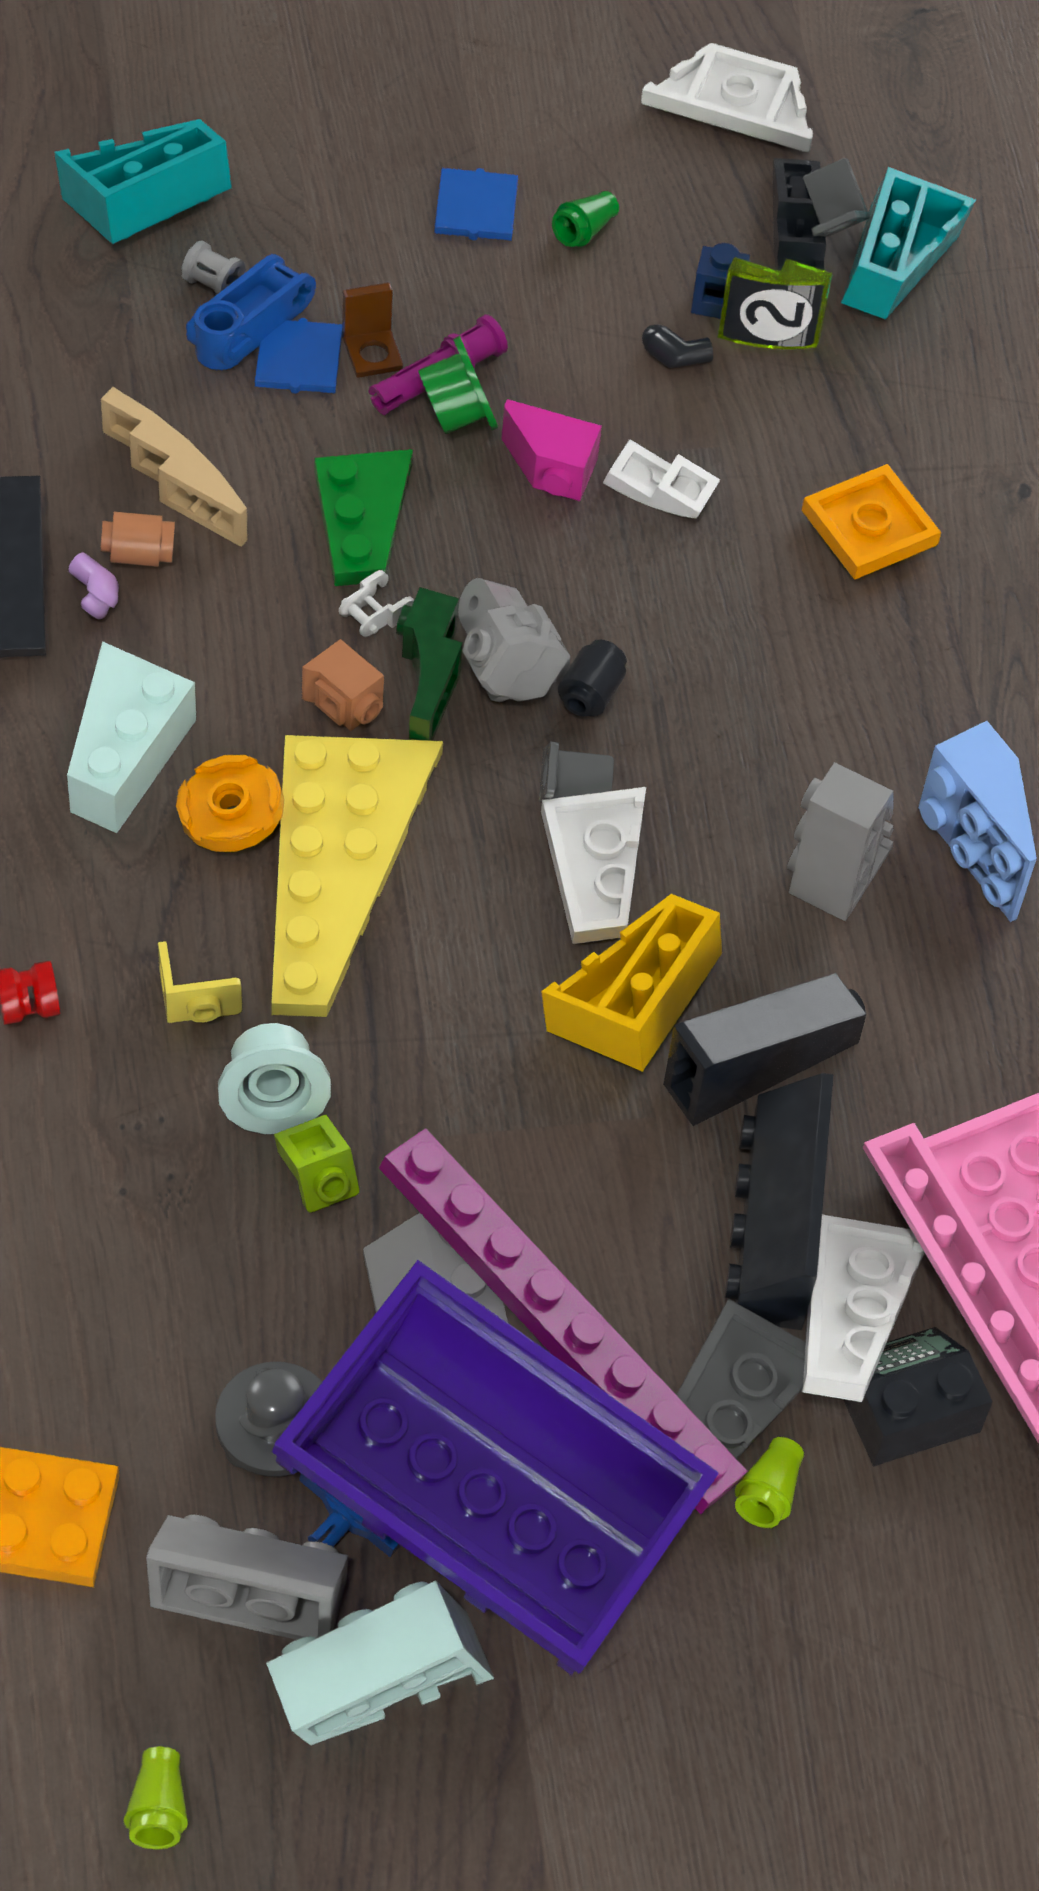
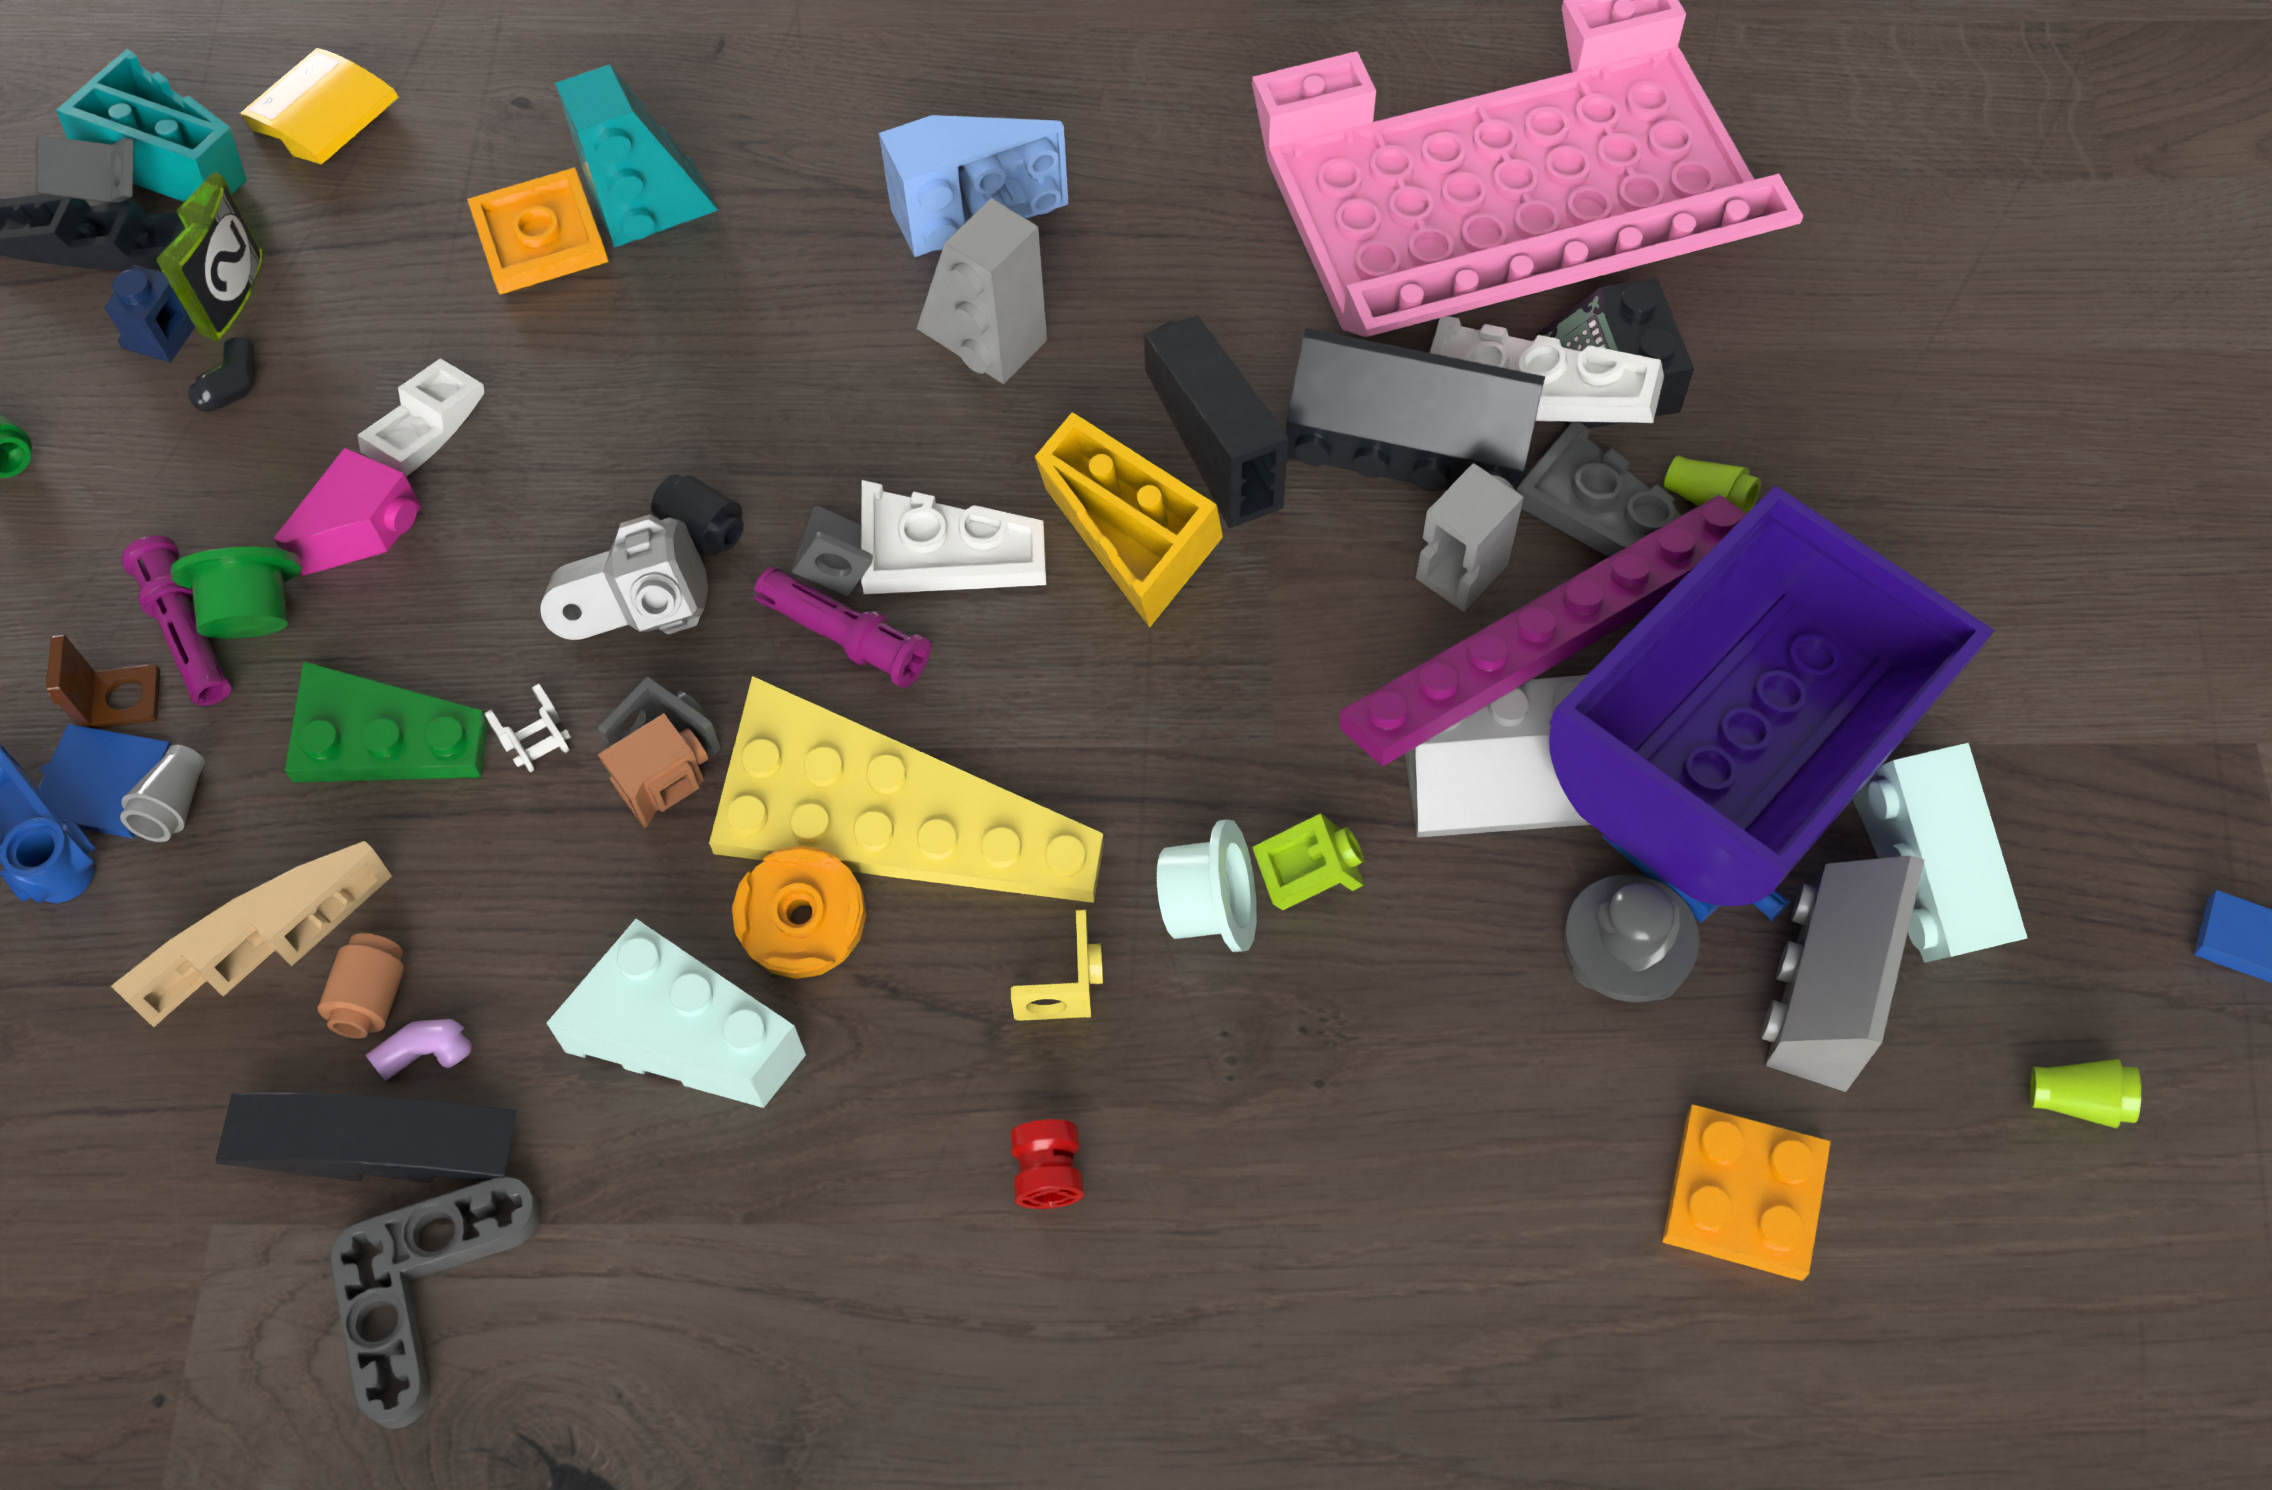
camera: 75 degrees left, 5 degrees up
(284, 390) = (163, 796): none -> light grey cone
(401, 685) = (652, 702): none -> dark grey bracket
(428, 641) = (602, 673): dark green slope -> none
(482, 827) = (864, 636): none -> magenta pin
(655, 1251) = (1469, 536): none -> light grey brick
(932, 557) = (628, 160): none -> teal wedge
(972, 347) = (319, 105): none -> yellow slope

